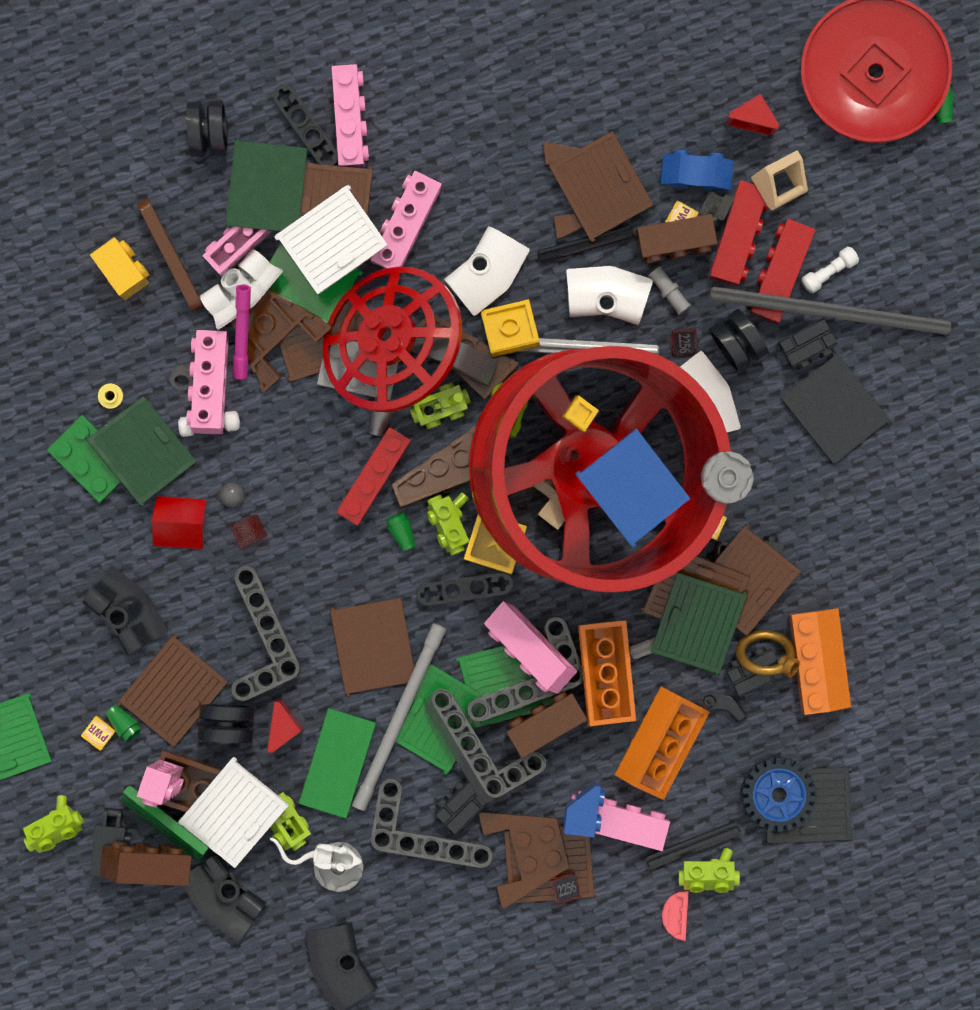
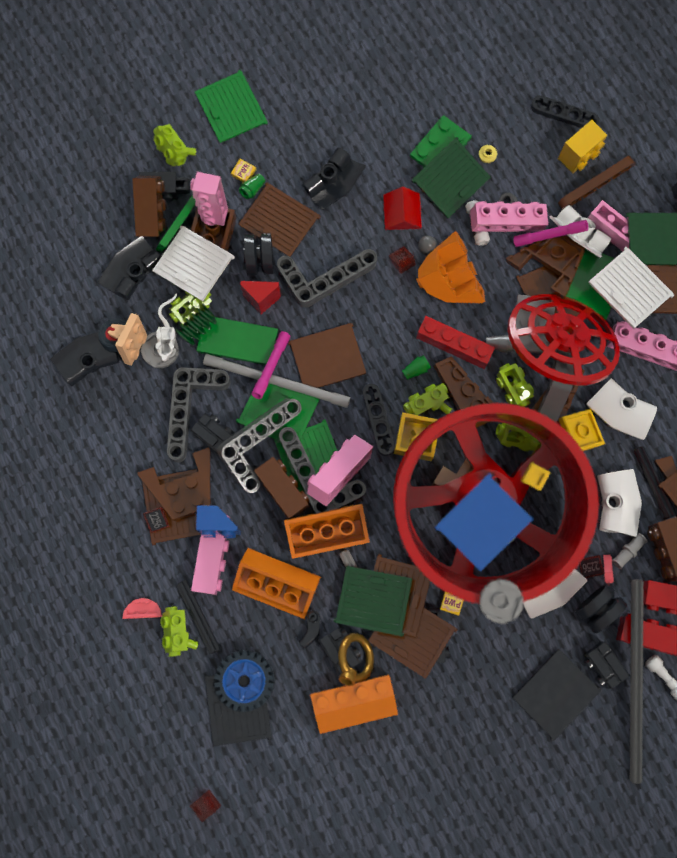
camera: 80 degrees right, 10 degrees down
(57, 279) = (565, 109): none -> black beam
(279, 470) = (449, 274): none -> orange brick
(316, 814) = (197, 325): none -> dark green piece
(322, 914) = (123, 337): none -> light nougat plate
(402, 734) = (262, 382): none -> dark pink piece
(699, 325) = (608, 571): none -> coral tile
(920, 855) = (205, 805): none -> clear red slope

